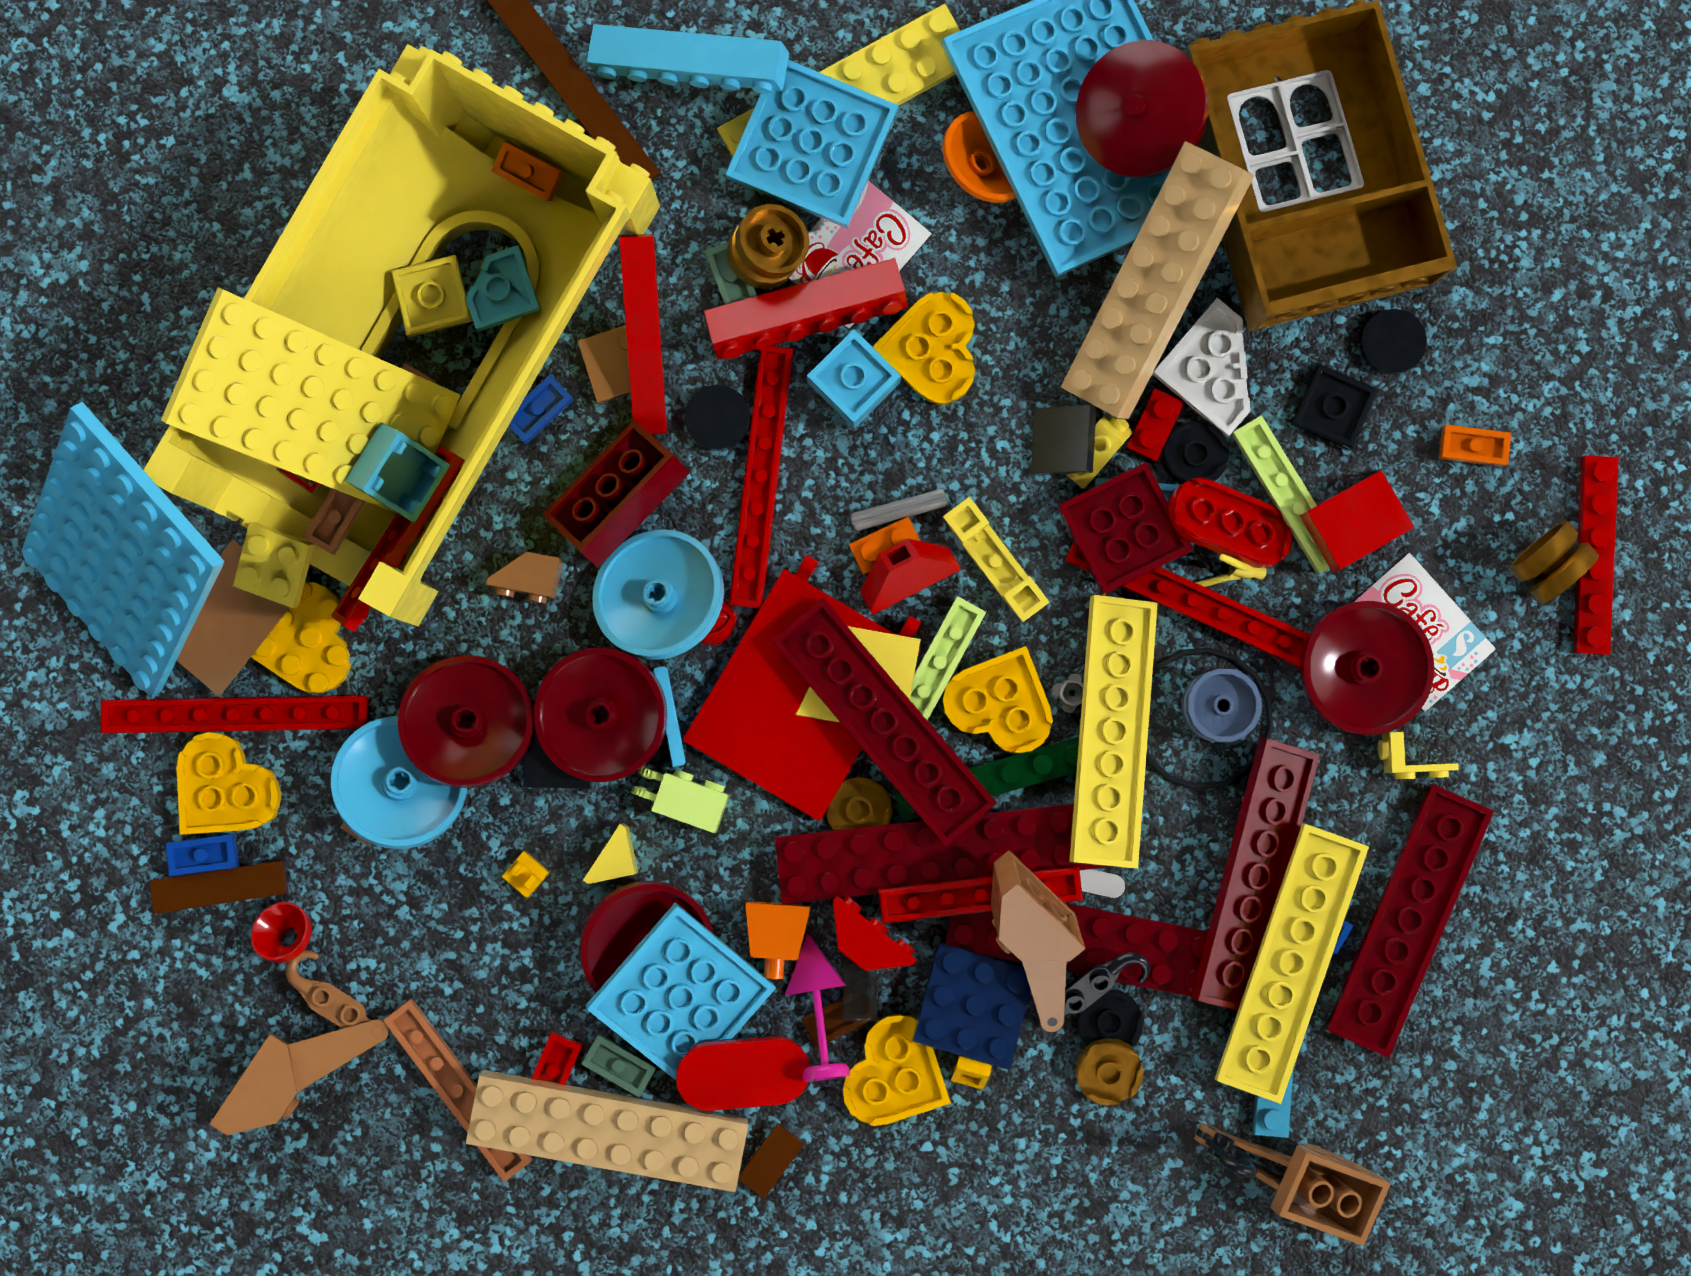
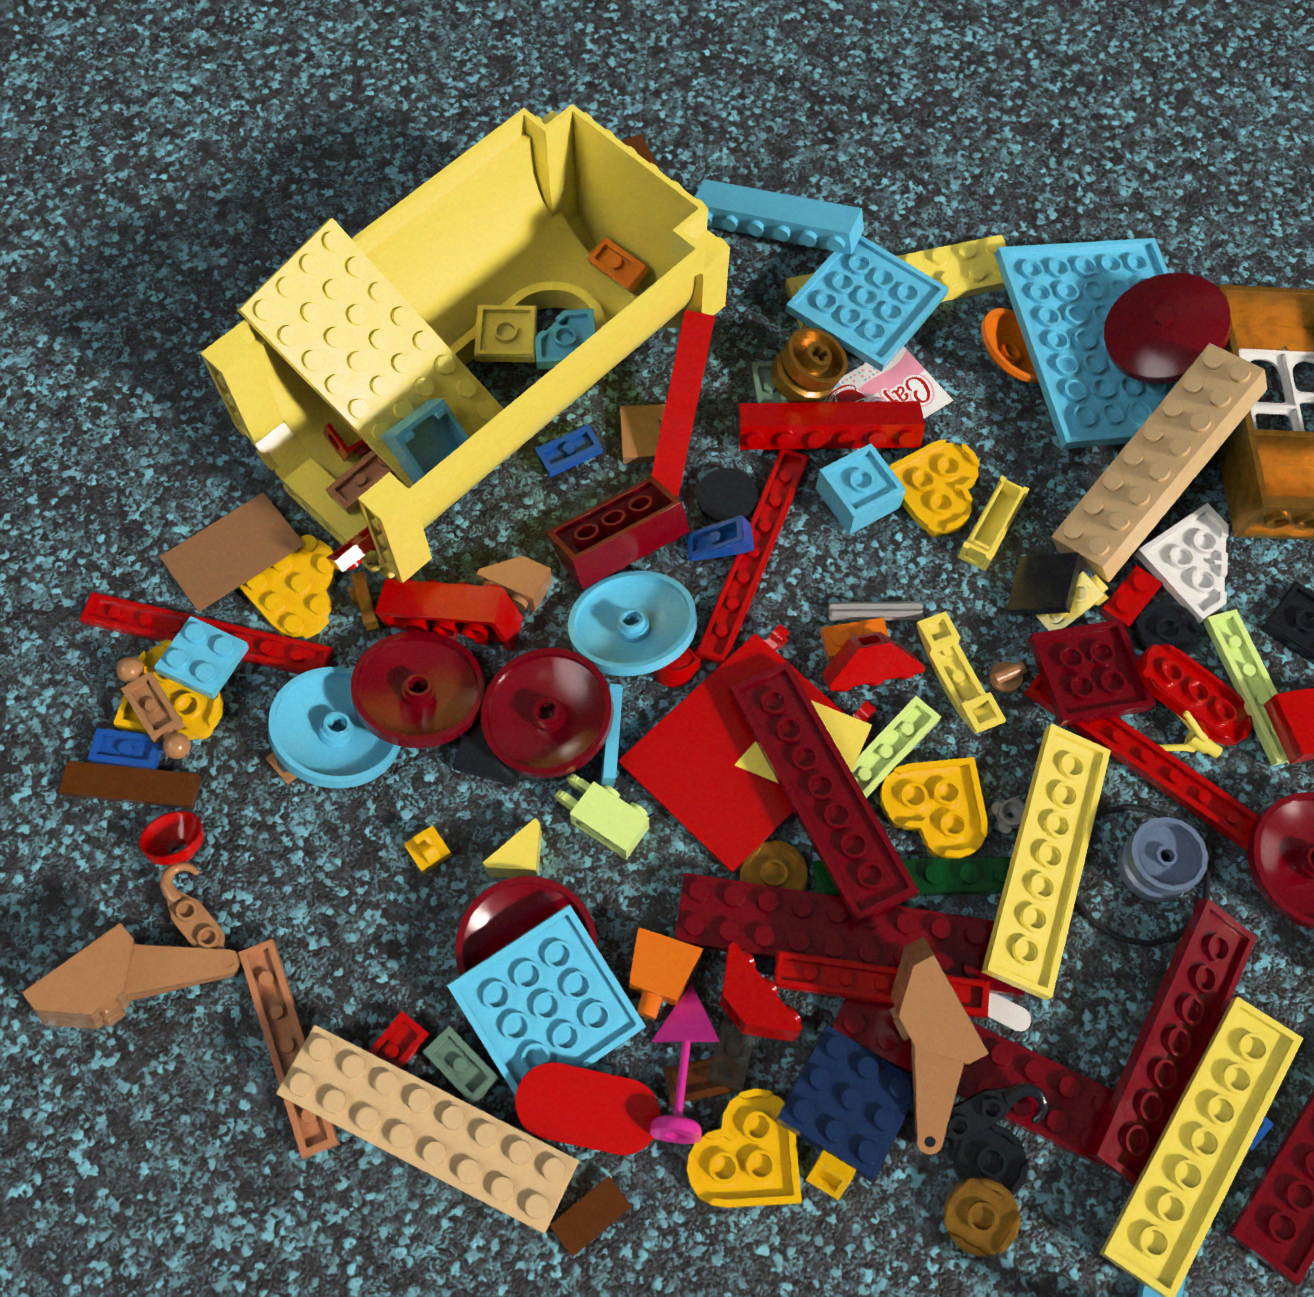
camera: 10 degrees right, 20 degrees down
(119, 552) = (159, 442): medium azure plate -> none
(214, 811) = (153, 707): none -> medium nougat plate
(241, 745) = (201, 657): none -> medium azure plate
(273, 565) = (291, 510): light yellow plate -> none
(376, 633) = (361, 595): none -> pearl gold plate
(474, 629) = (451, 610): none -> red wedge
(723, 473) = (720, 539): none -> blue slope
(1000, 378) = (993, 524): none -> light yellow container
(1043, 547) = (1007, 676): none -> medium nougat plate

